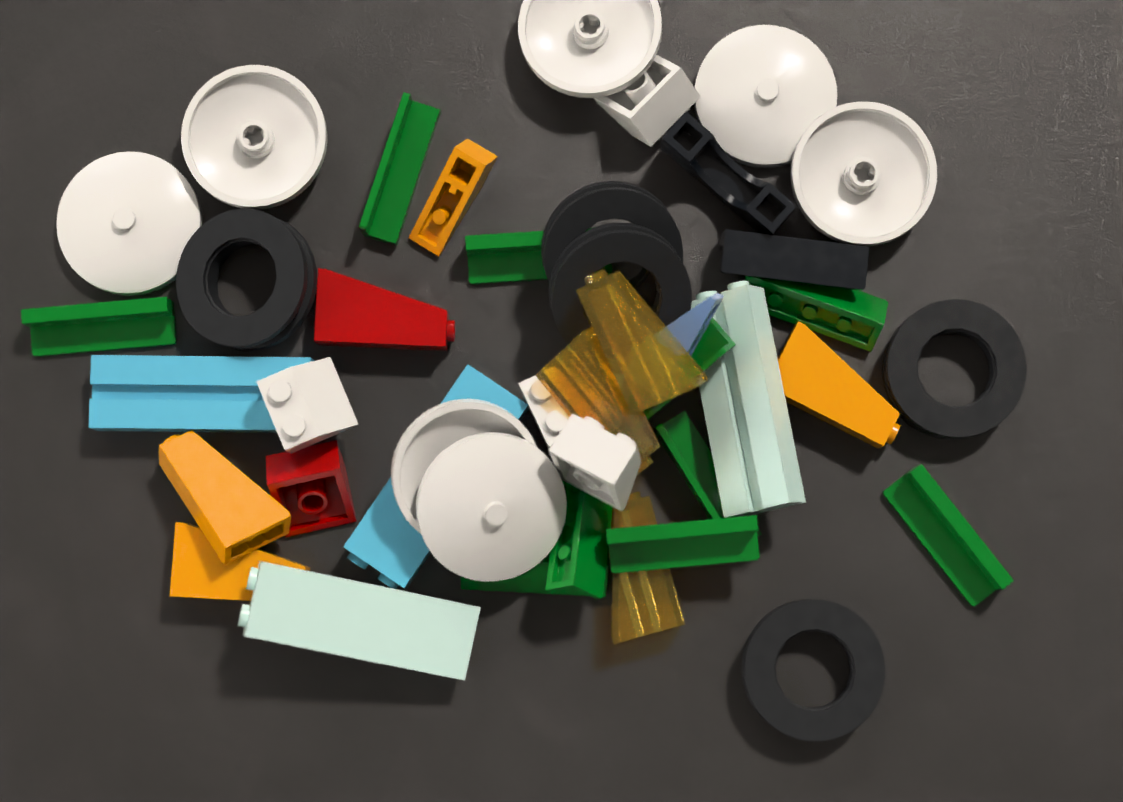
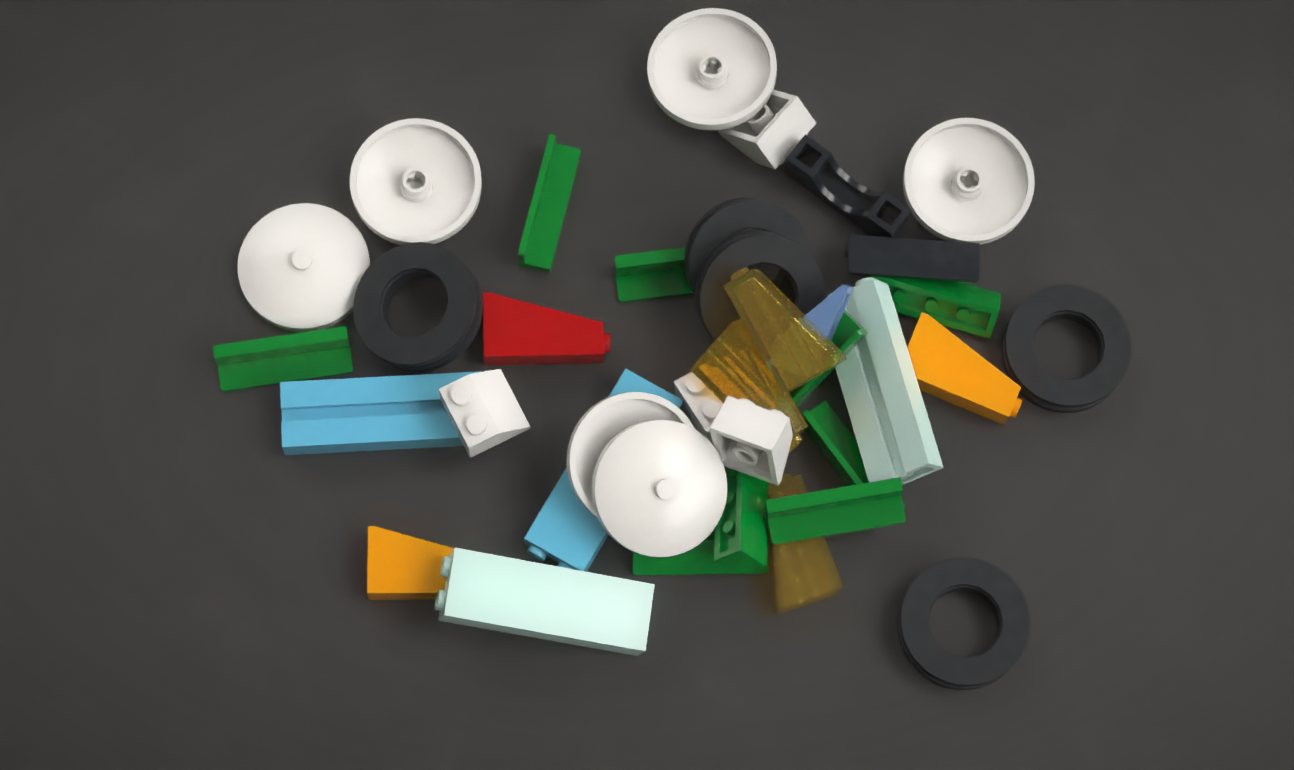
camera: 10 degrees left, 10 degrees down
(221, 498) = (408, 501): light orange slope -> none
(311, 487) = (489, 491): red slope -> none
(452, 195) = (598, 224): light orange slope -> none
(763, 93) = (872, 118): white dish -> none
(947, 535) = (1074, 496): green panel -> none

